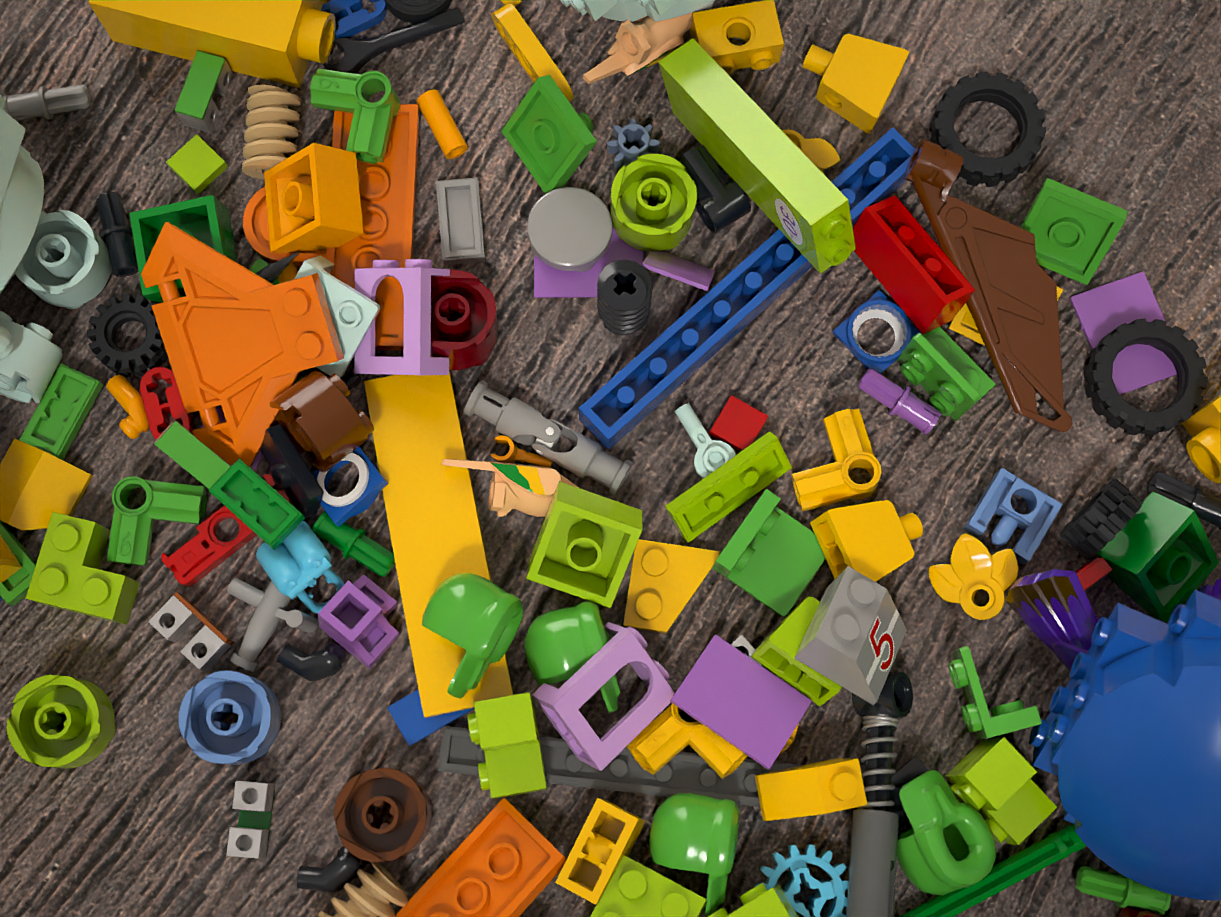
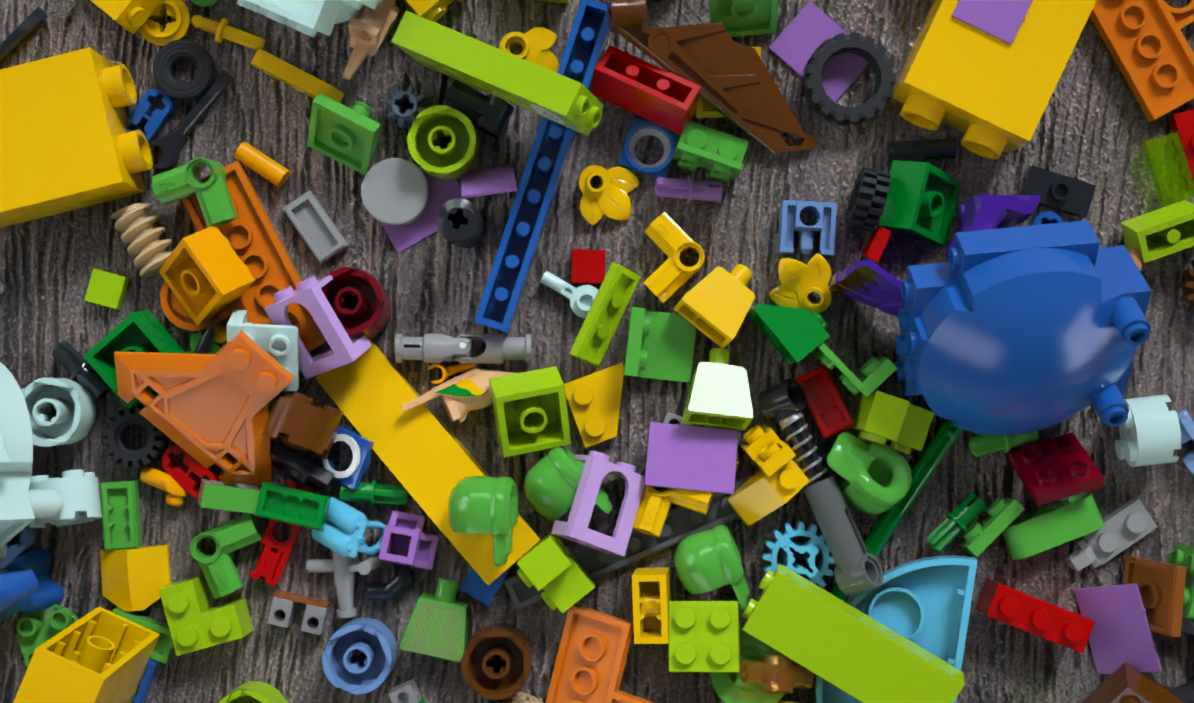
camera: 30 degrees left, 10 degrees up
(206, 76) = (74, 225): bright green piece -> none
(340, 732) = (439, 623): none -> bright green torso
(803, 362) = (609, 197): none -> yellow plate
(834, 740) = (766, 449): none -> yellow slope
(854, 635) = (743, 375): light grey slope -> none
(931, 727) = (825, 402): none -> red plate
(934, 613) = (790, 330): none -> green slope

